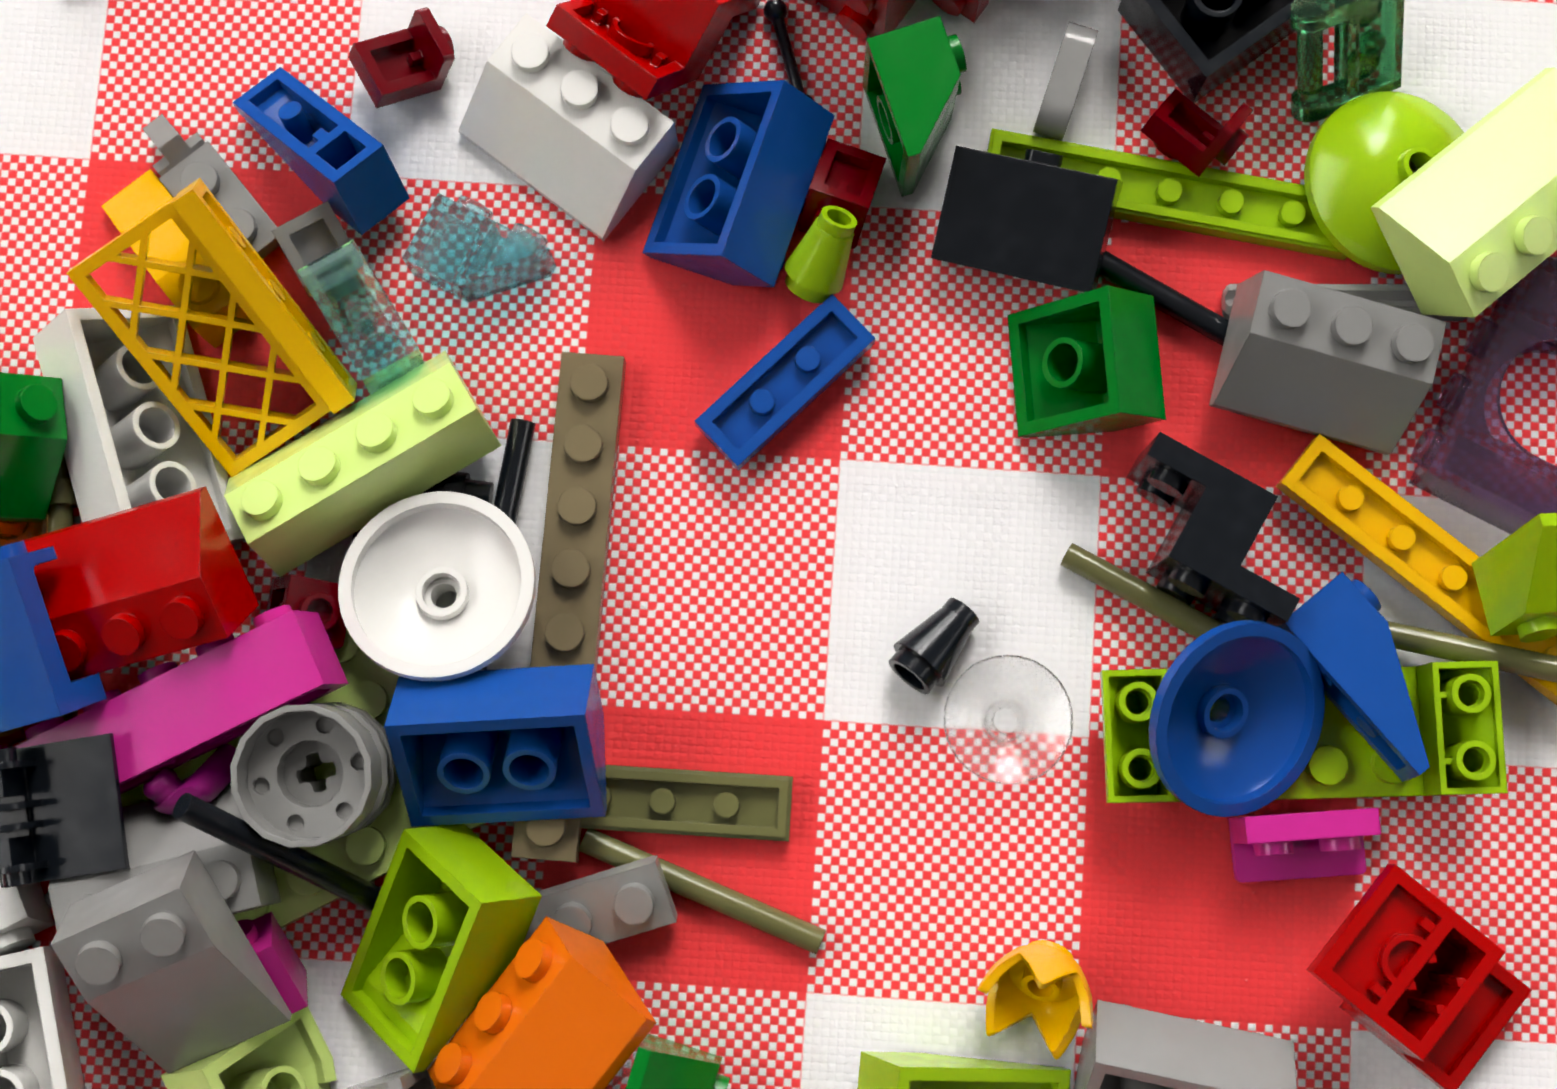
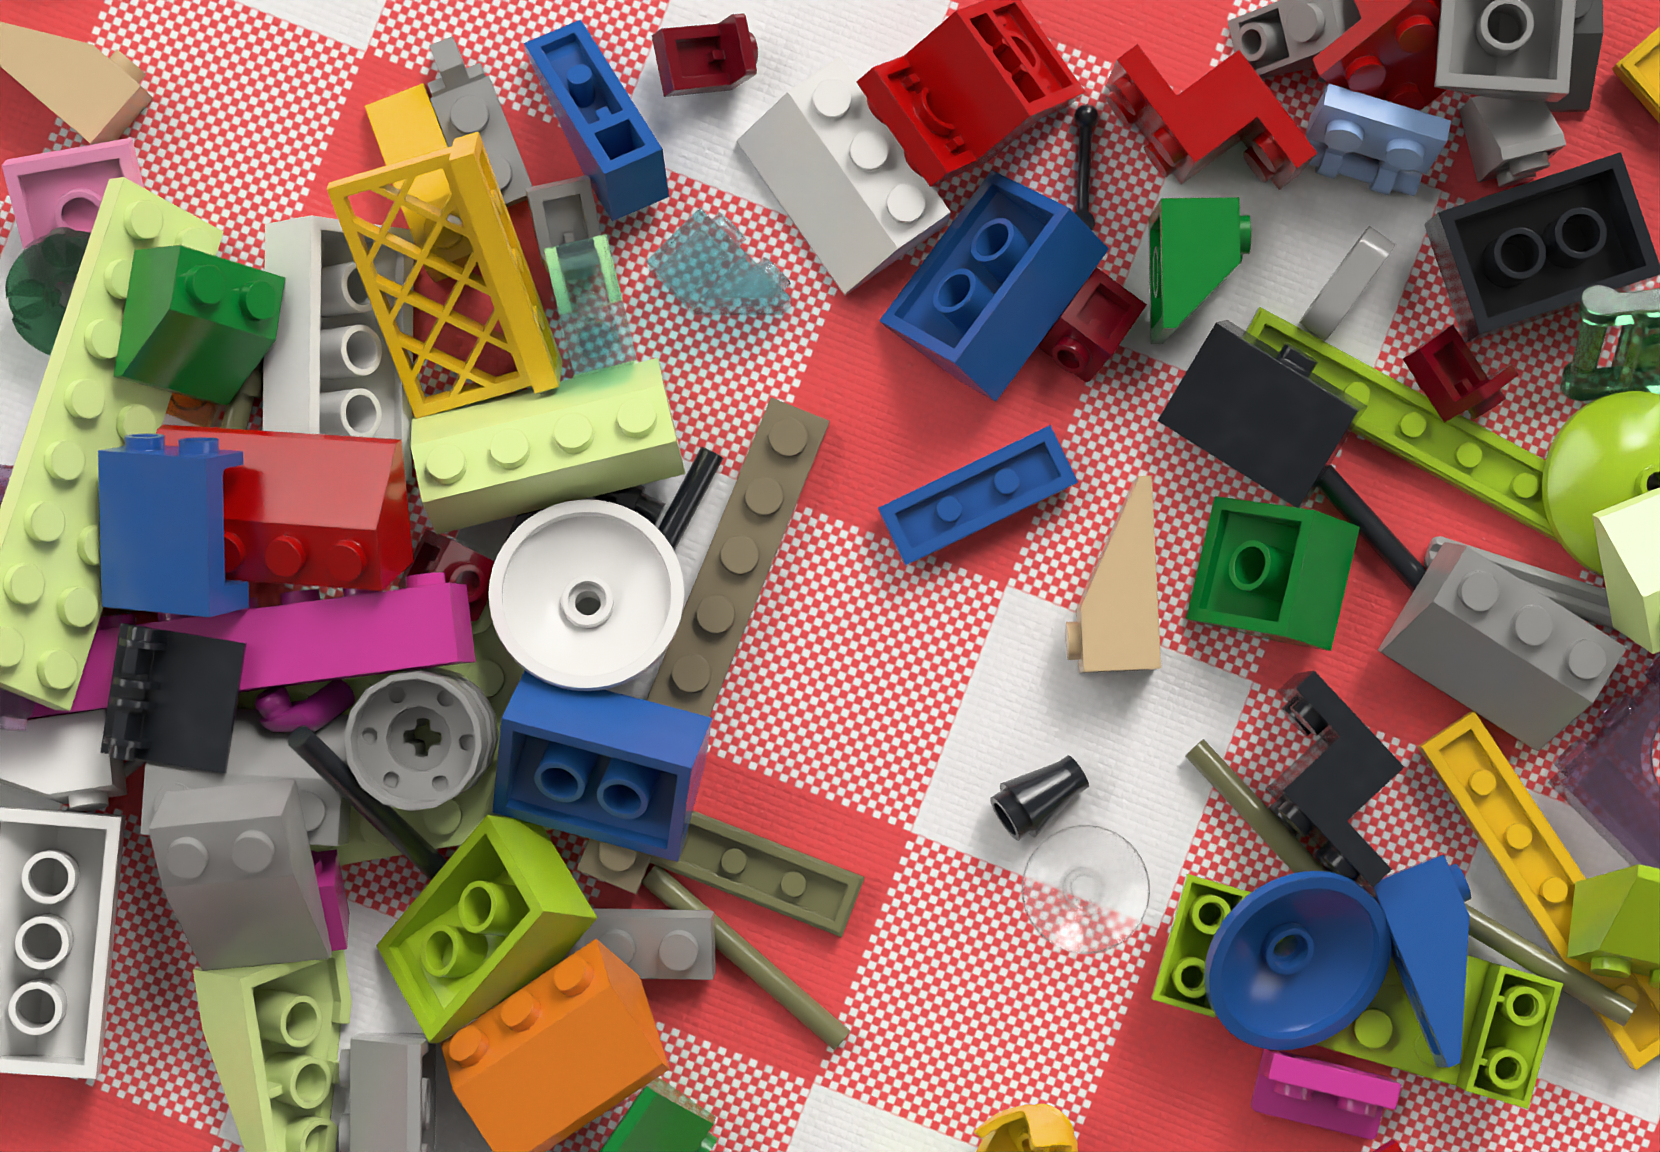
camera: 10 degrees right, 5 degrees up
(822, 256) = (1049, 388): lime cone -> none
(953, 443) = (1119, 606): none -> tan slope

